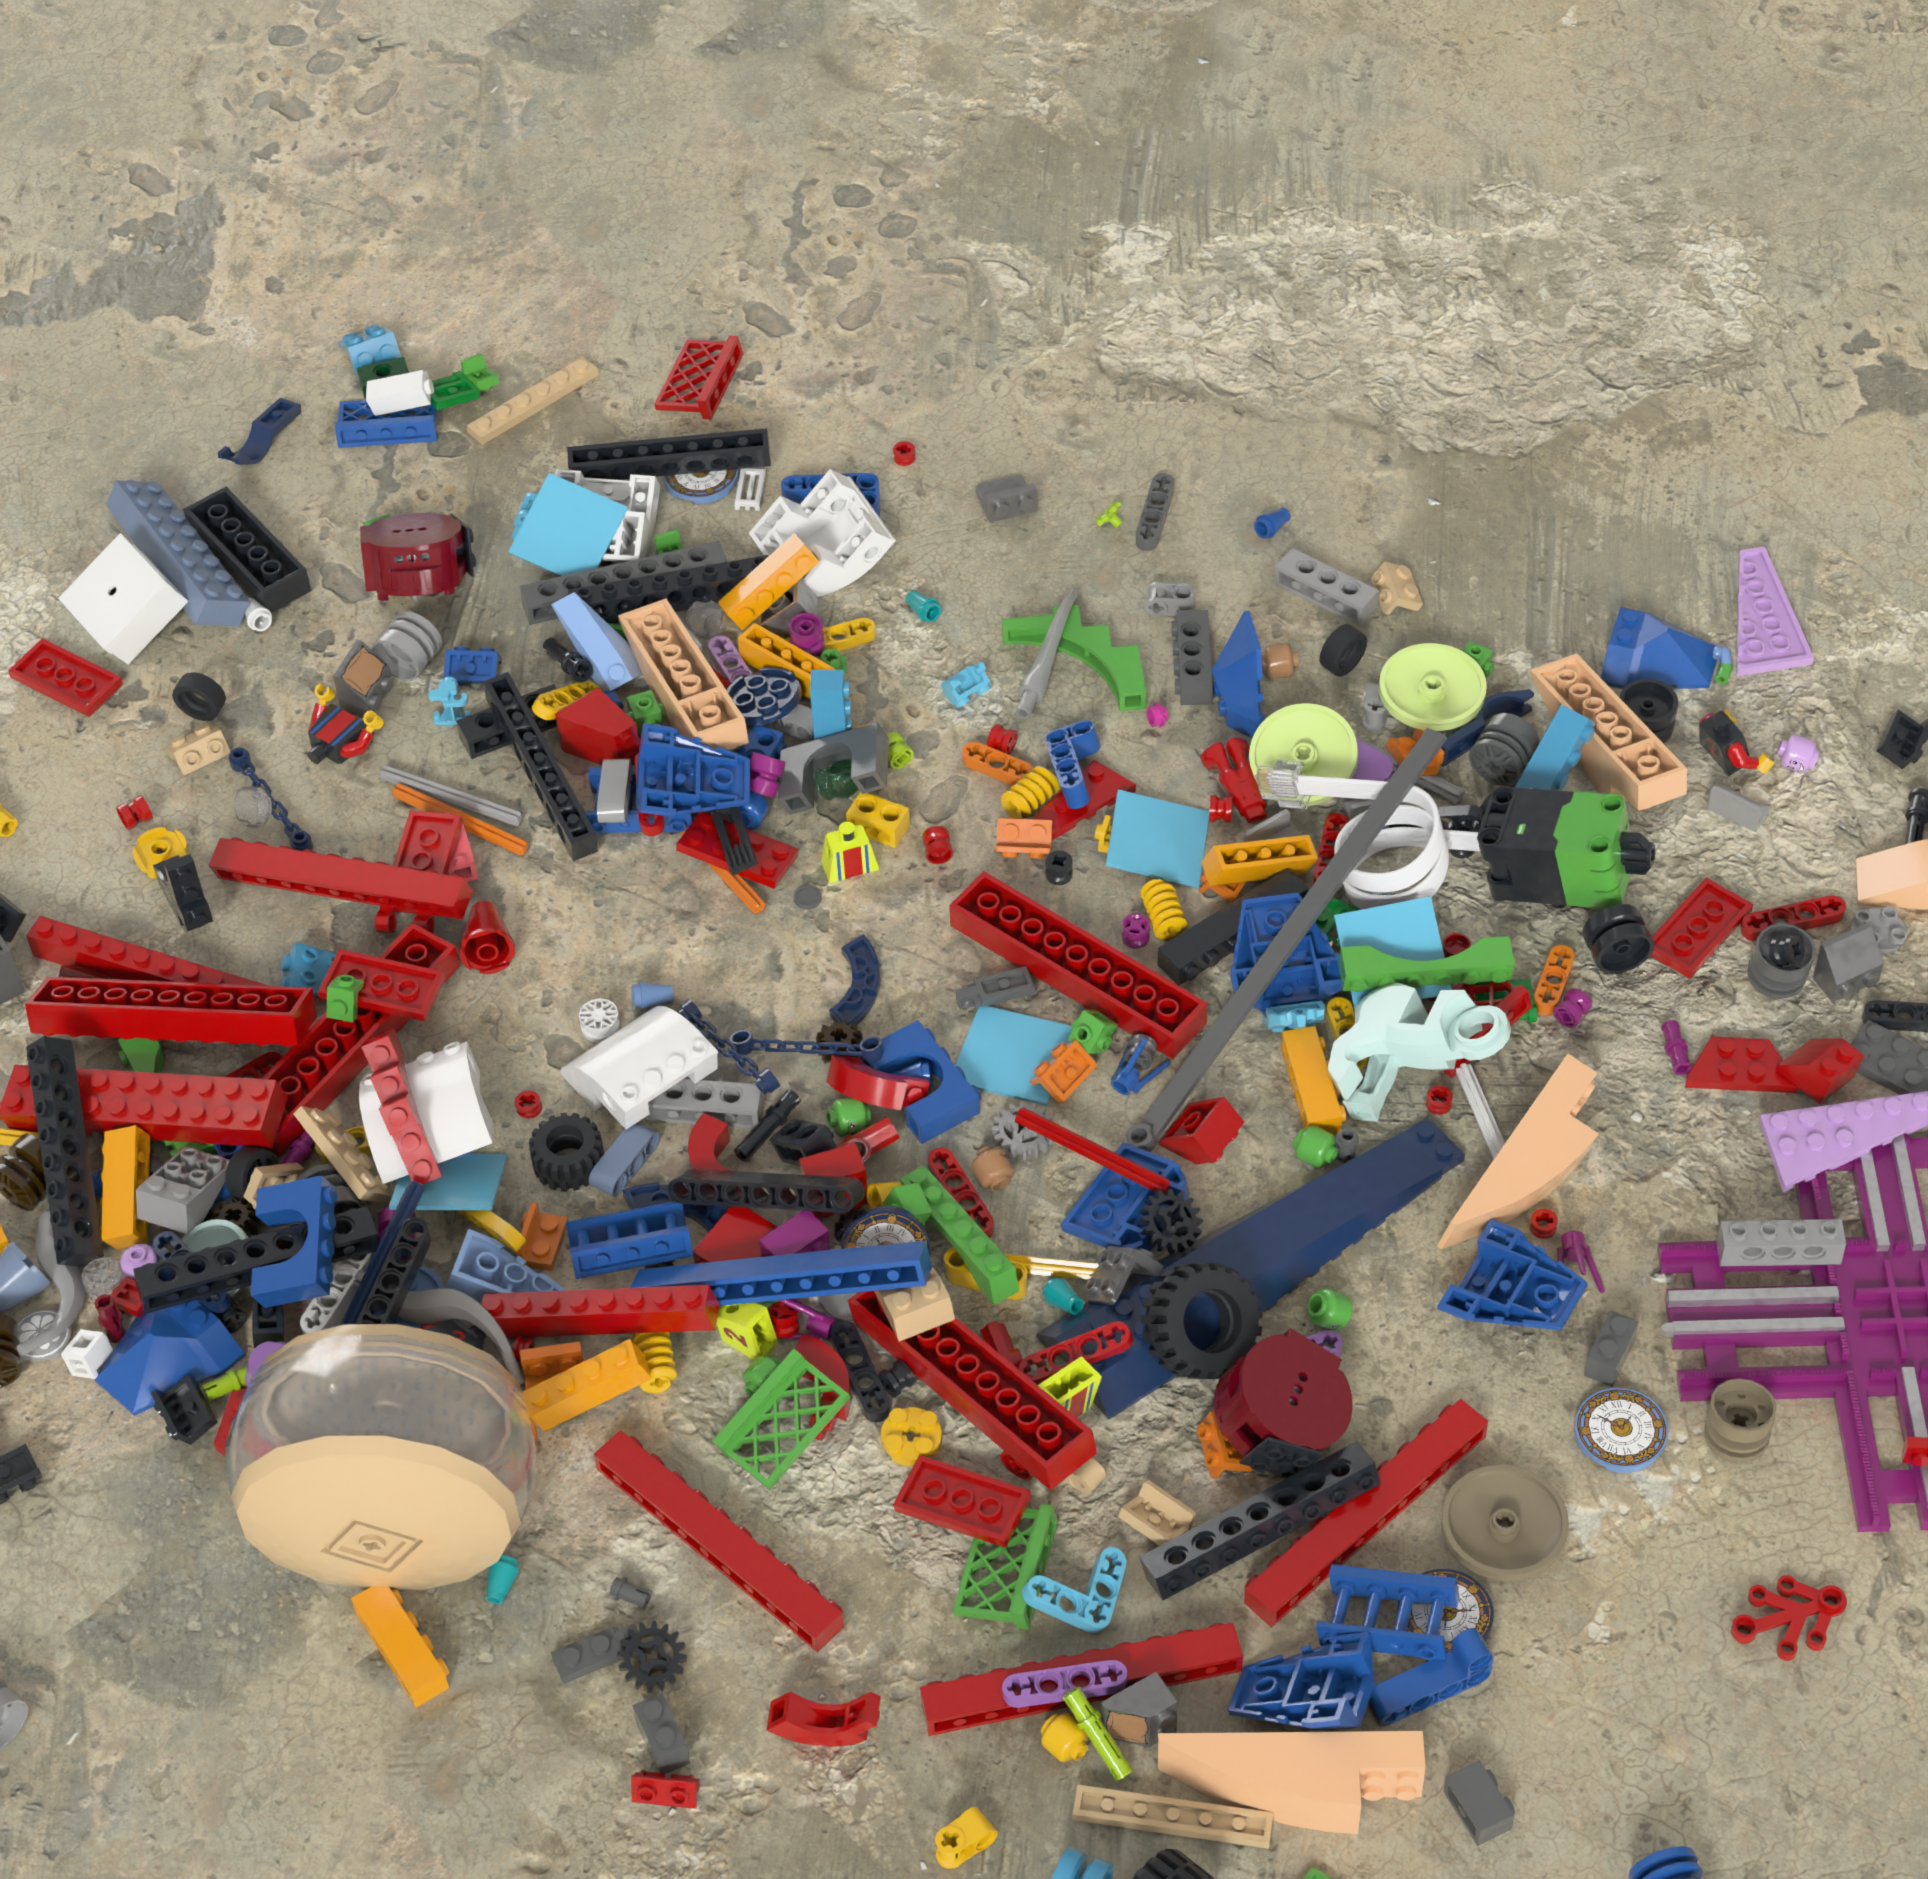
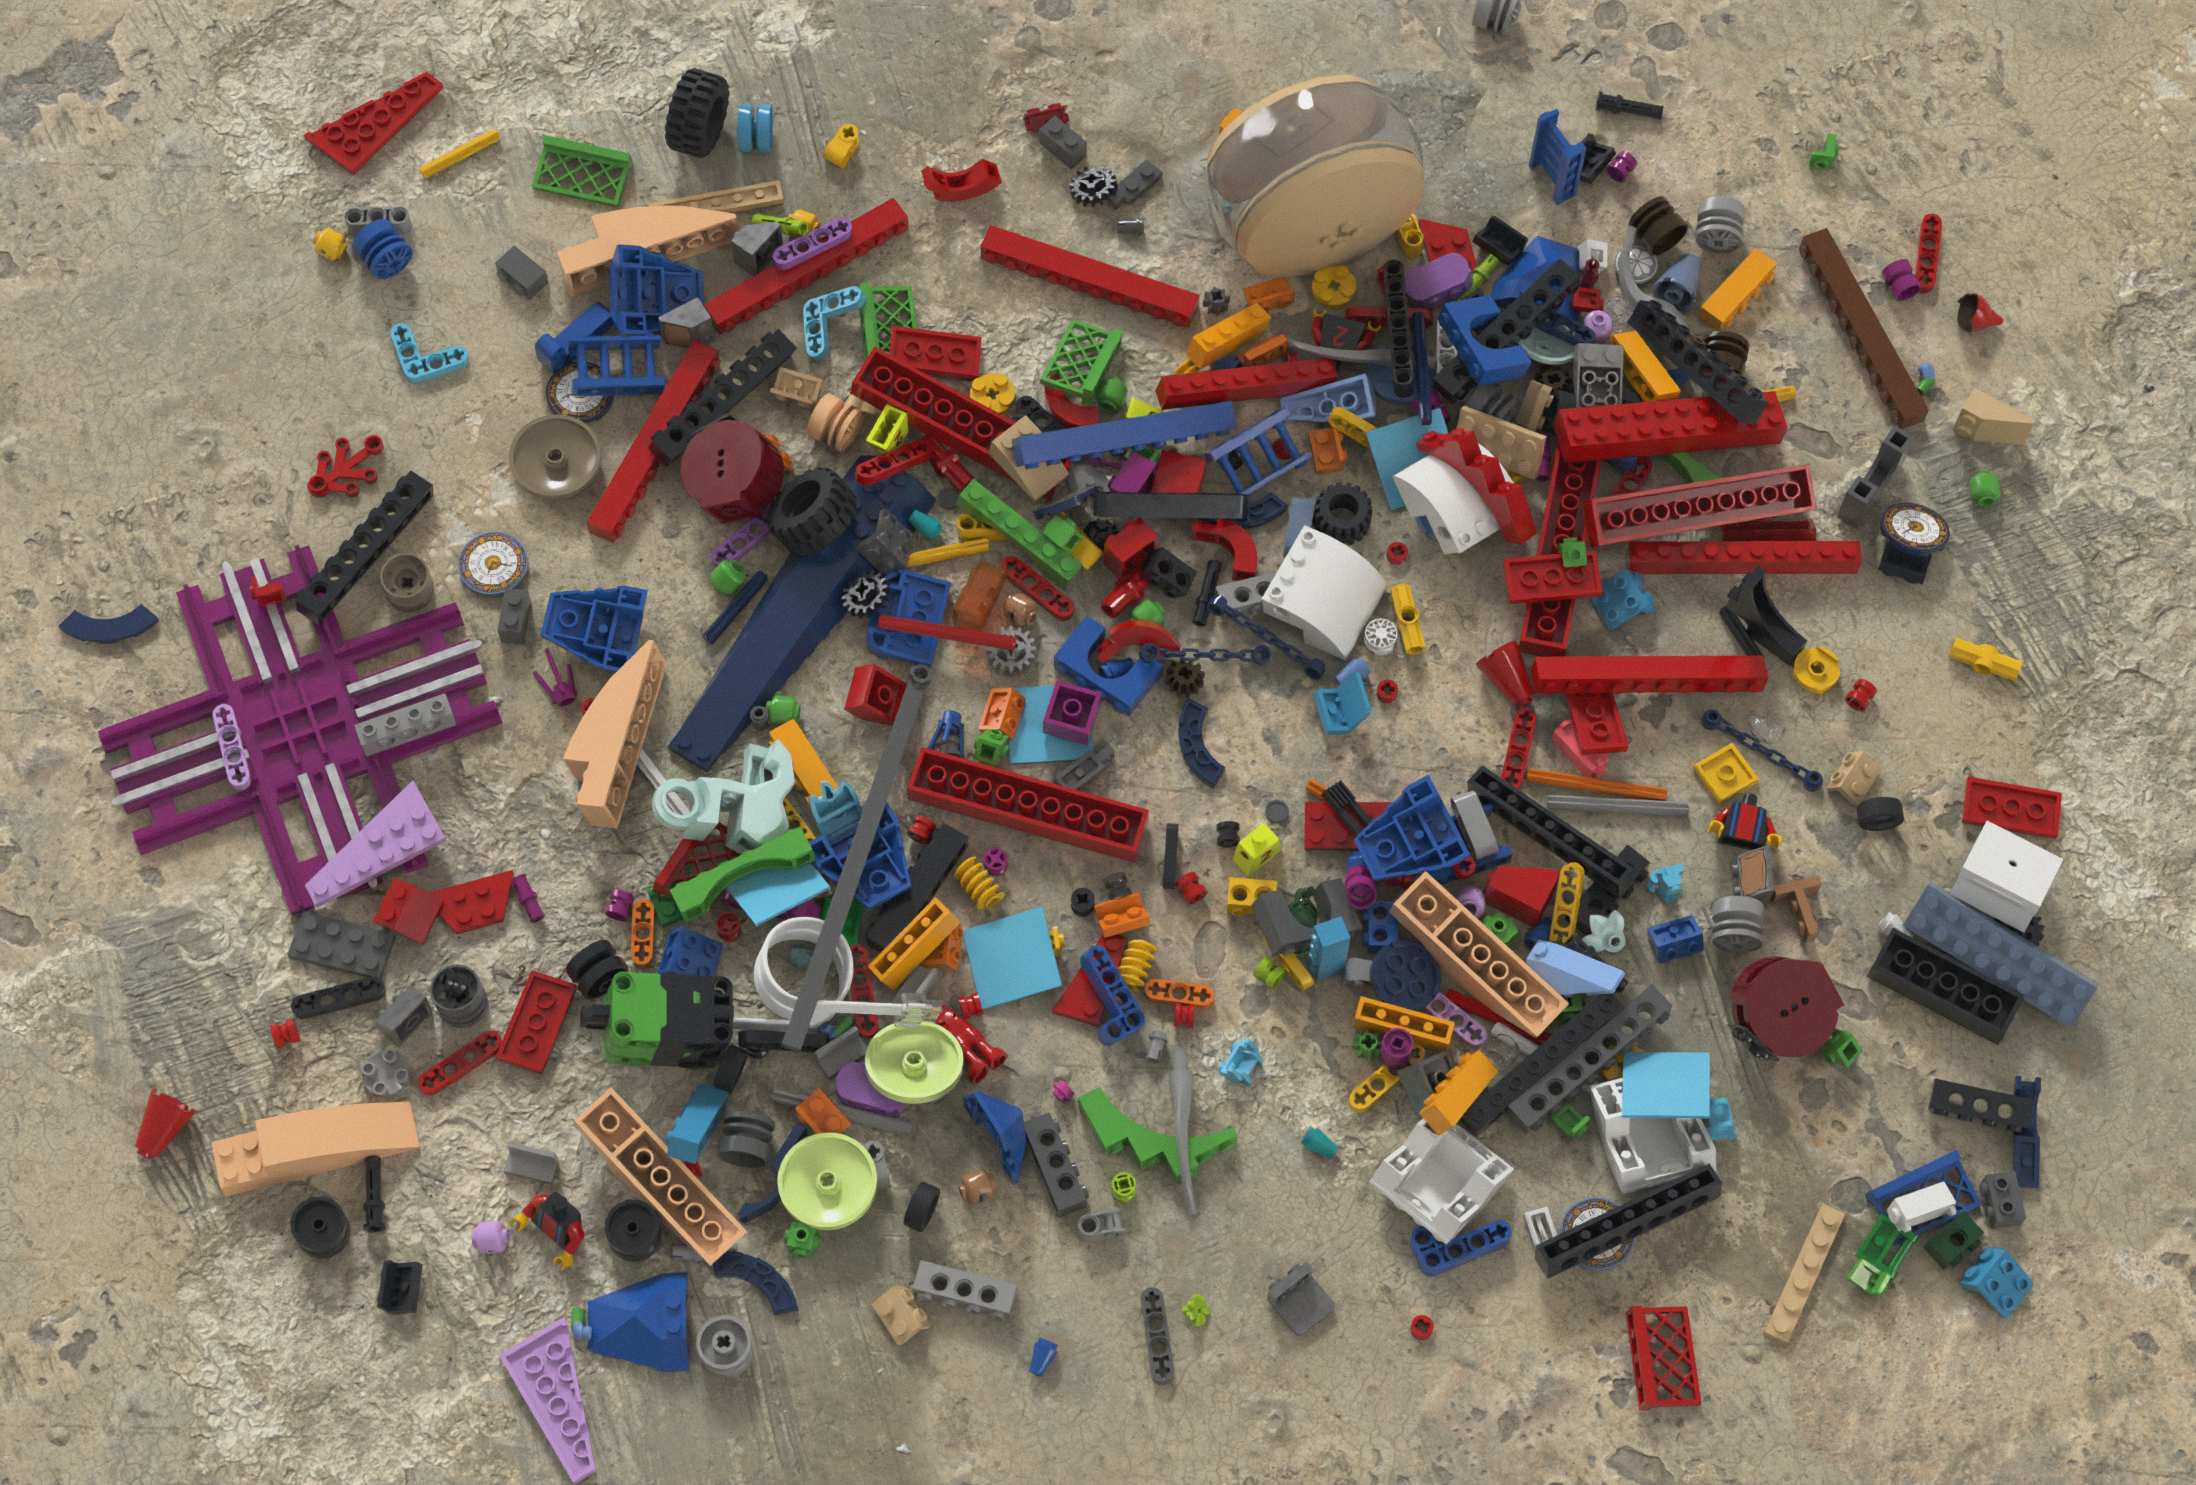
camera: 155 degrees right, 15 degrees up
(54, 1449) = (1557, 156): none -> blue fence
(213, 897) = (1739, 632): none -> black axle
(286, 457) = (2019, 1106): none -> black brick
(319, 395) = (2002, 1200): none -> dark grey brick
(321, 792) = (1726, 773): none -> yellow tile
(323, 668) = (1796, 894): none -> medium nougat bracket
(524, 875) = (1519, 751): none -> red beam
(536, 680) = (1604, 930): none -> light aqua plate
(559, 1026) = (1409, 630): none -> yellow piece
(574, 1453) = (1216, 301): none -> dark grey gear
(626, 976) = (1392, 687): none -> red bush
(682, 960) = (1343, 707): none -> dark azure bracket
(872, 881) = (1228, 834): none -> black wheel
(944, 881) = (1170, 856): none -> black beam
(985, 1034) = (1072, 712): none -> magenta brick
(1015, 867) = (1117, 885): none -> clear smoke wheel
(1020, 1331) = (948, 498): none -> dark grey piece
(1039, 1192) = (978, 596): none -> clear orange wedge
(1040, 729) = (1156, 1046): none -> light grey pin
(1128, 1441) = (835, 423): none -> light nougat wheel
(1133, 621) = (1122, 1192): none -> lime wheel
(1204, 982) = (921, 829): none -> red wheel
(1273, 1630) = (687, 324): none -> flat silver slope
(1335, 1281) = (735, 607): none -> dark blue axle
(1517, 648) = (759, 1274): none -> dark blue tile
(1525, 931) = (690, 954): none -> blue bracket
(1581, 602) = (716, 1357): none -> light grey wheel
(1658, 1729) = (417, 362): none -> medium azure beam
(1862, 1414) = (319, 608): none -> black brick

